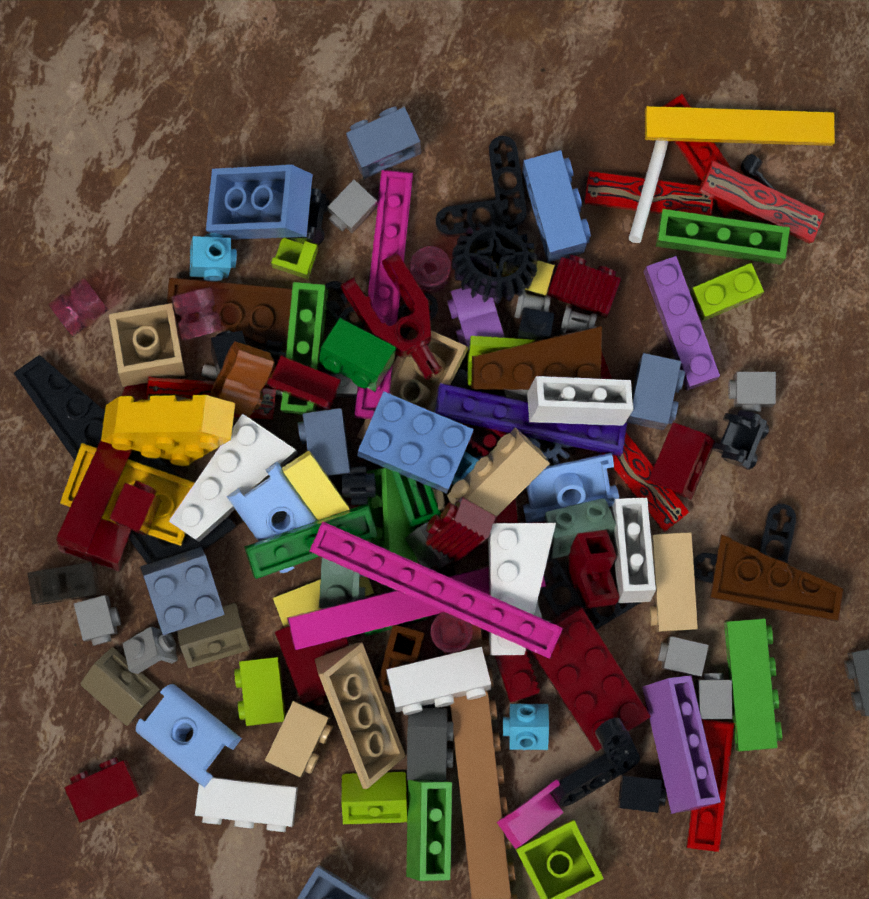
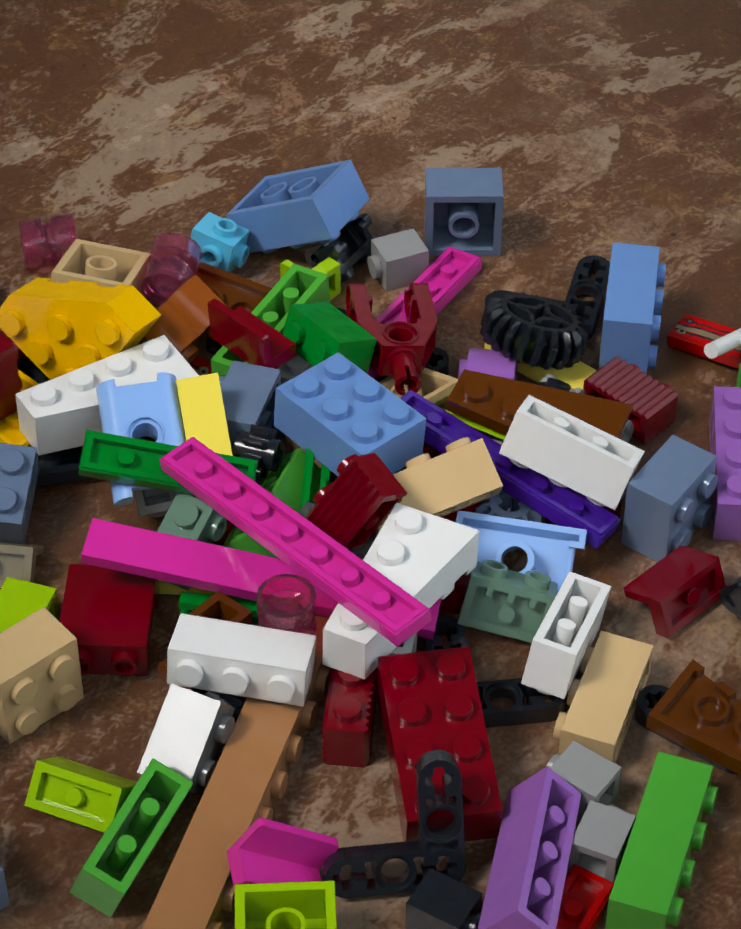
camera: 20 degrees right, 40 degrees down
(360, 712) = (119, 671): tan slope -> none
(431, 269) = (458, 323): clear pink wheel -> none
(527, 726) = (329, 776): medium azure brick -> none
(590, 567) = (507, 635): dark red brick -> none
(635, 472) = (621, 614): red tile -> none

